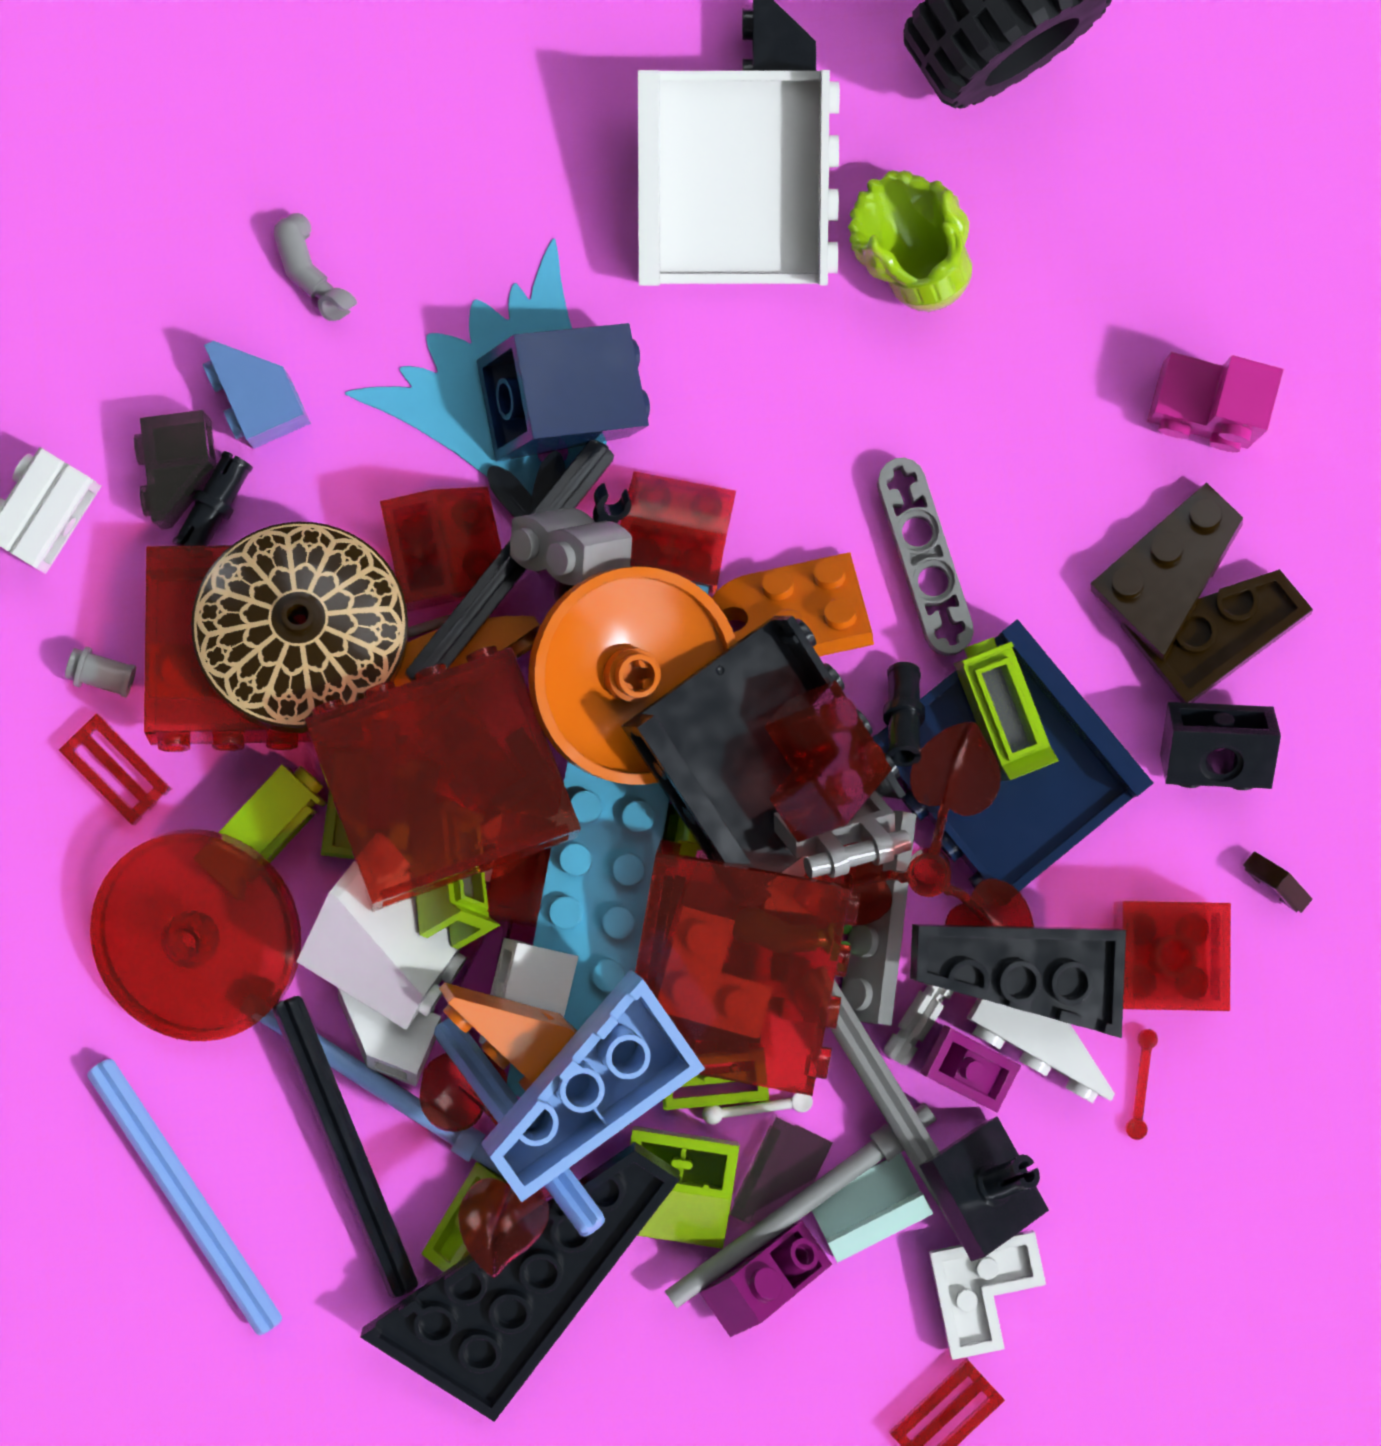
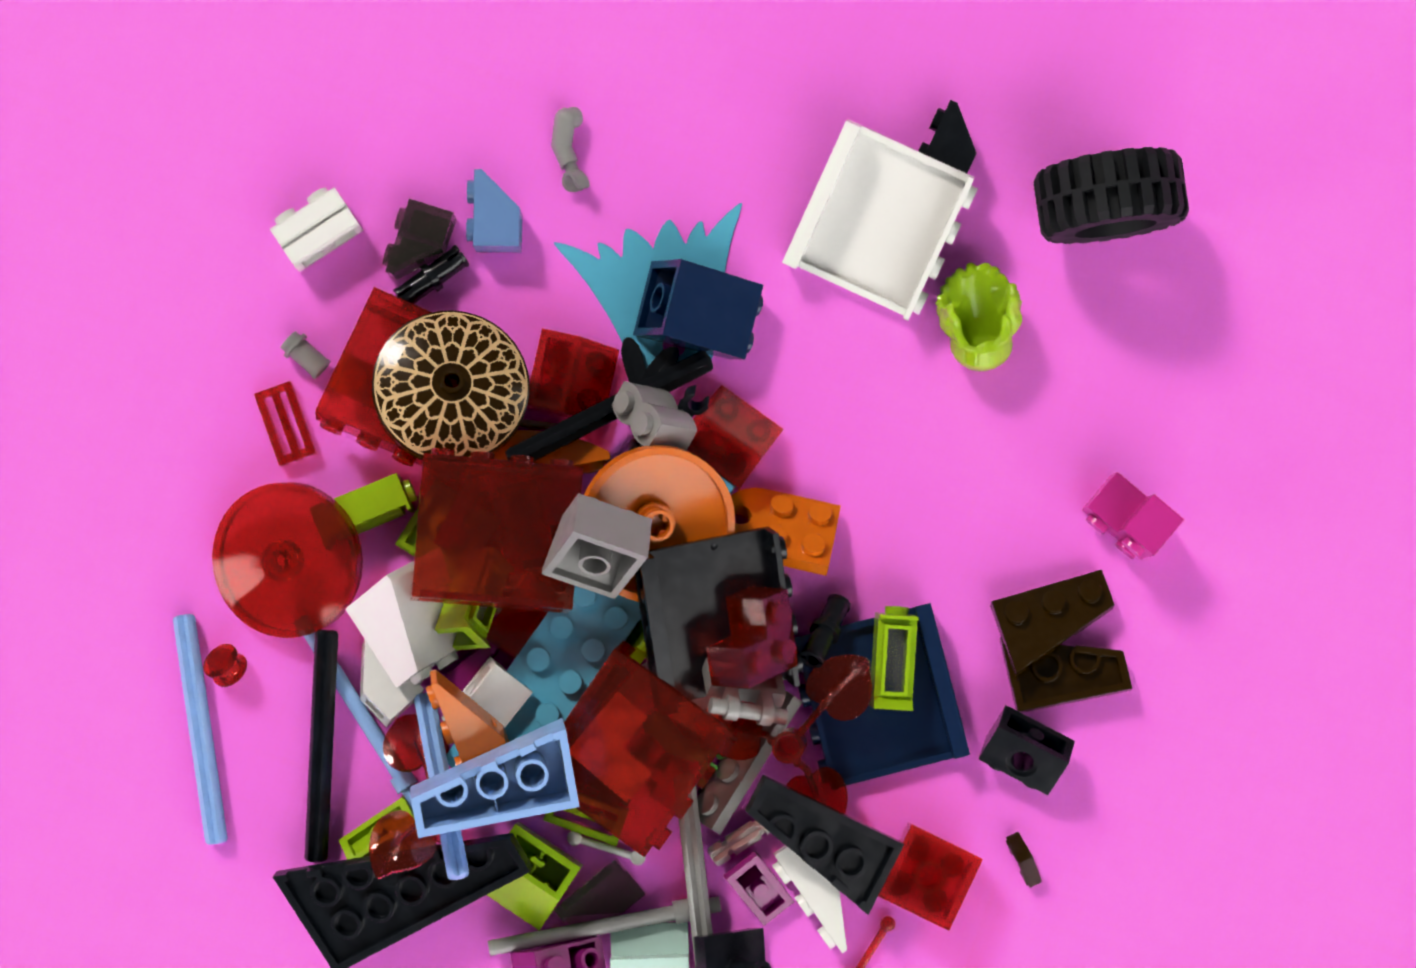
camera: 20 degrees right, 0 degrees up
(179, 1102) = (225, 665): none -> clear red wheel
(577, 734) = (598, 546): none -> light grey slope
(930, 555) = (885, 531): light grey beam -> none

